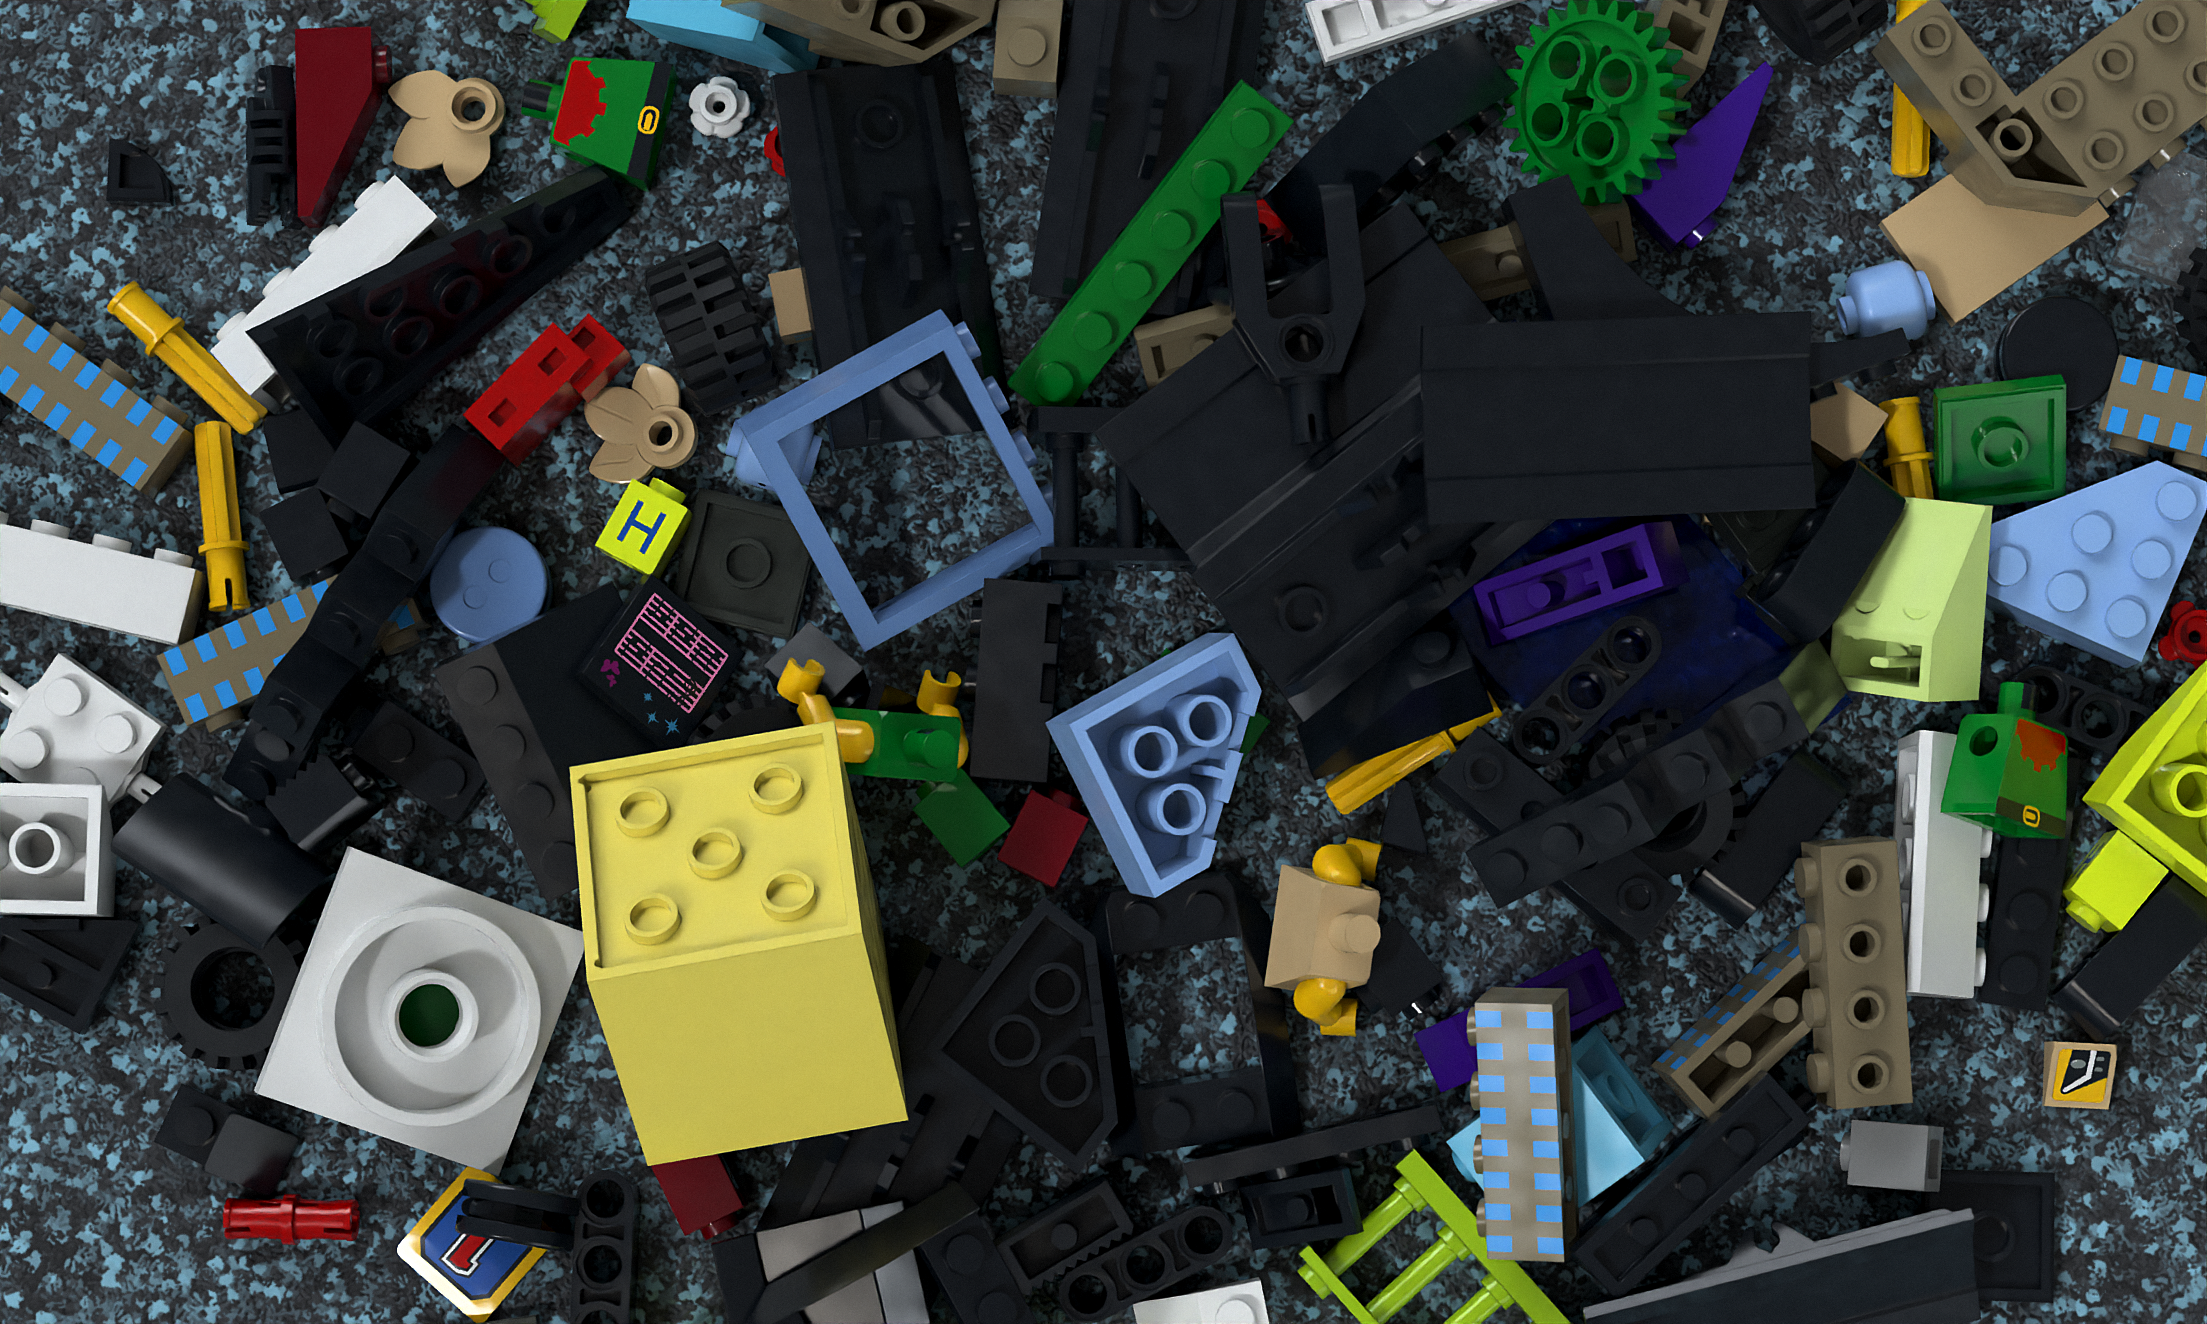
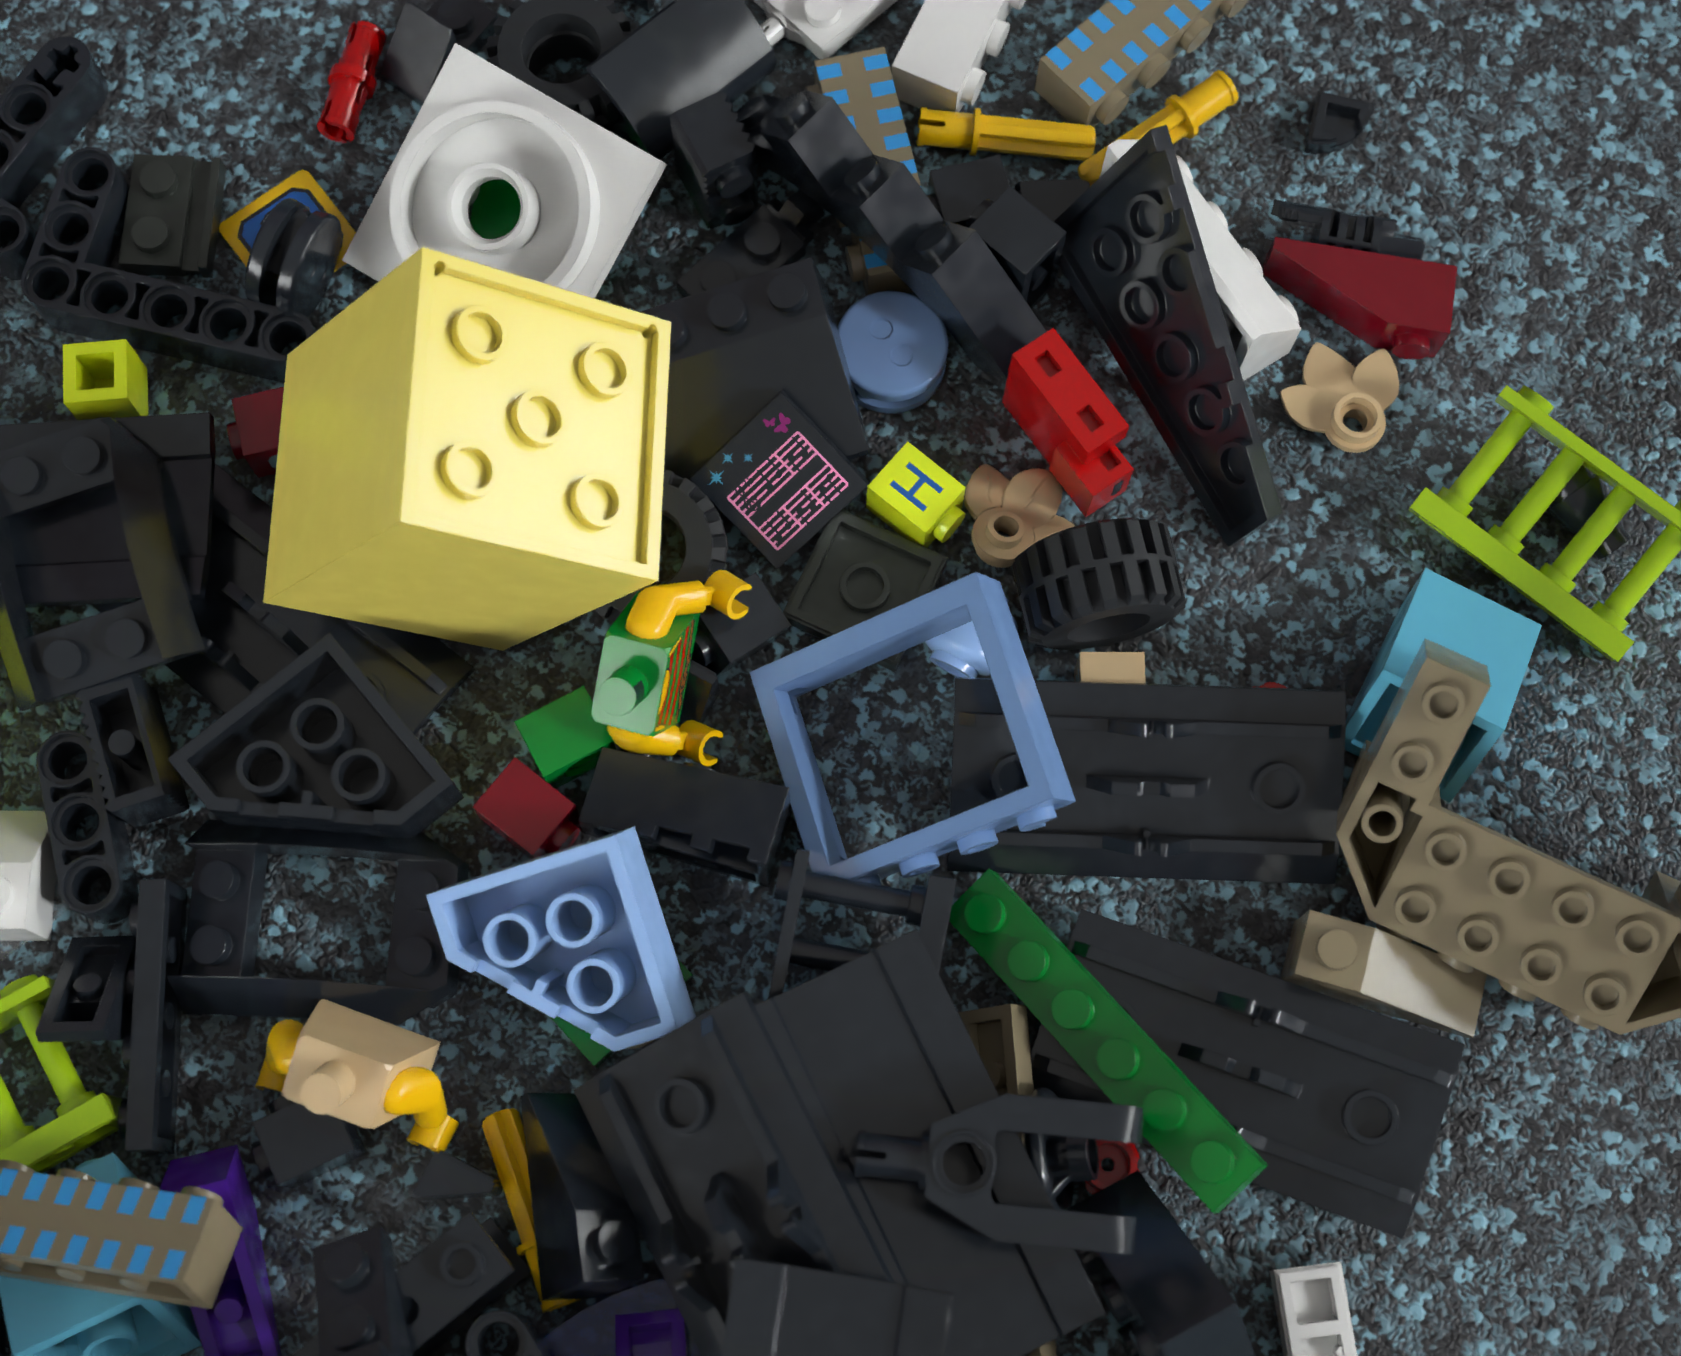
camera: 95 degrees right, 10 degrees down
(608, 114) = (1329, 541): green torso -> none
(724, 123) = (1312, 661): white plate -> none

